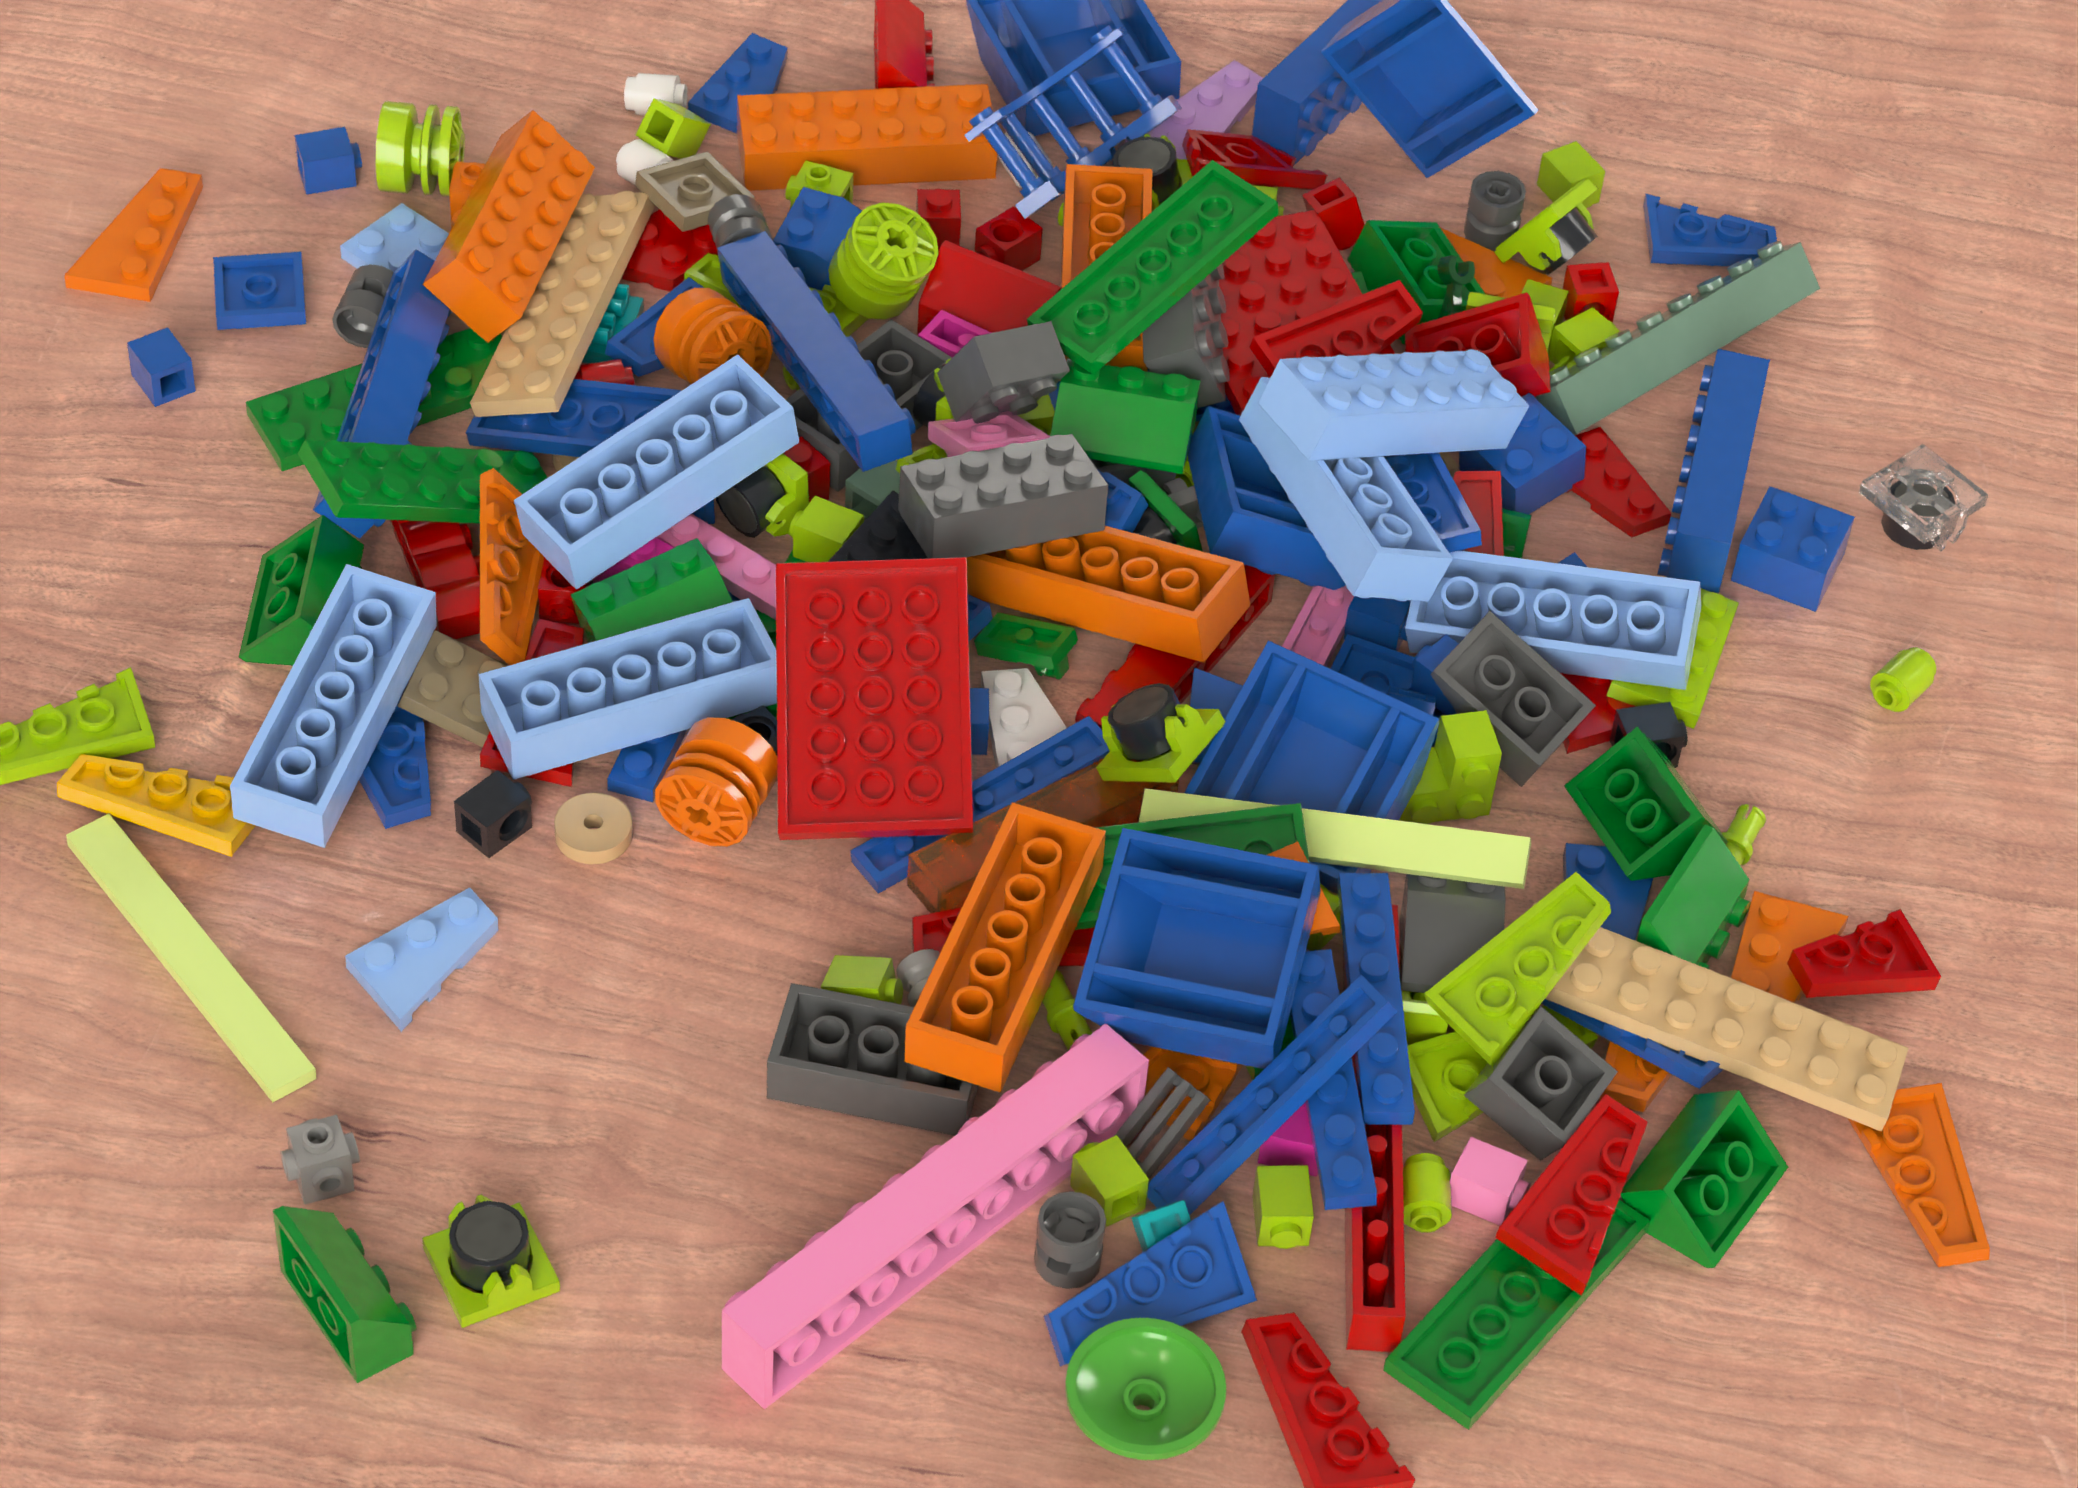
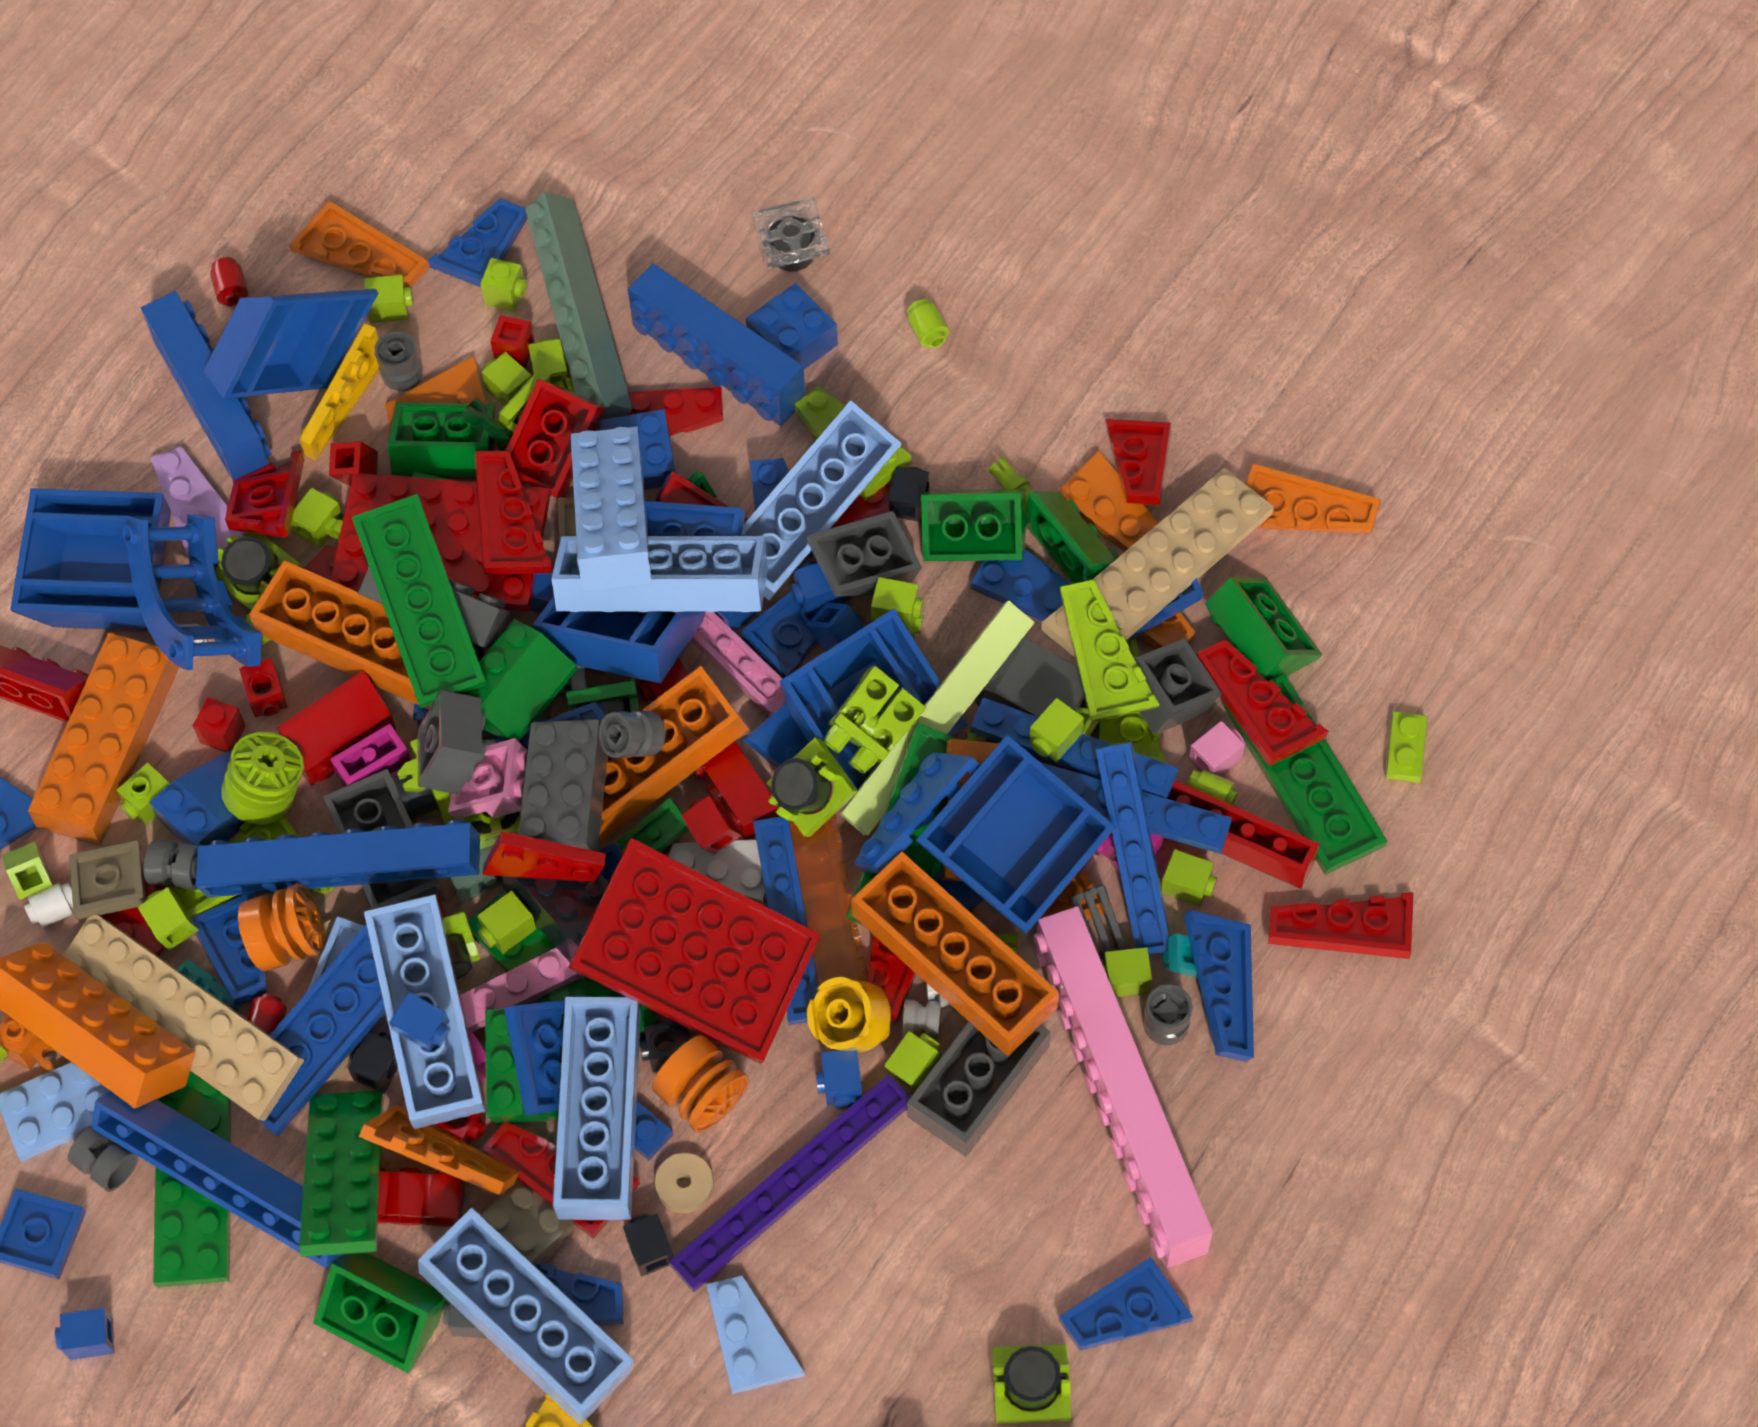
camera: 60 degrees left, 15 degrees up
(627, 447) = (420, 1022): none -> blue brick
(635, 923) = (790, 1183): none -> dark purple plate
(638, 1331) = (1126, 1308): none -> blue wing
(672, 250) = (168, 918): none -> lime brick
(673, 588) = (536, 1052): none -> blue wing
(804, 929) = (840, 1078): none -> blue brick
(883, 895) = (849, 1015): none -> yellow brick
(899, 496) = (537, 858): none -> red wing
(1060, 678) = (710, 824): none -> red brick
(1105, 517) = (631, 734): none -> dark grey wheel
(1149, 1366) = (1306, 997): bright green dish -> none
(1192, 827) = (914, 808): none -> blue wing
(1279, 756) = (862, 726): none -> lime hips
(1375, 945) = (1056, 730): none -> lime brick
(1419, 177) = (343, 393): none -> yellow wing
(1504, 39) = (228, 281): none -> red brick
(1555, 232) = (444, 332): lime piece -> none
(1620, 133) = (354, 245): none -> orange wing
(1635, 1409) = (1406, 747): none -> lime plate
(1661, 267) = (503, 284): none -> lime brick

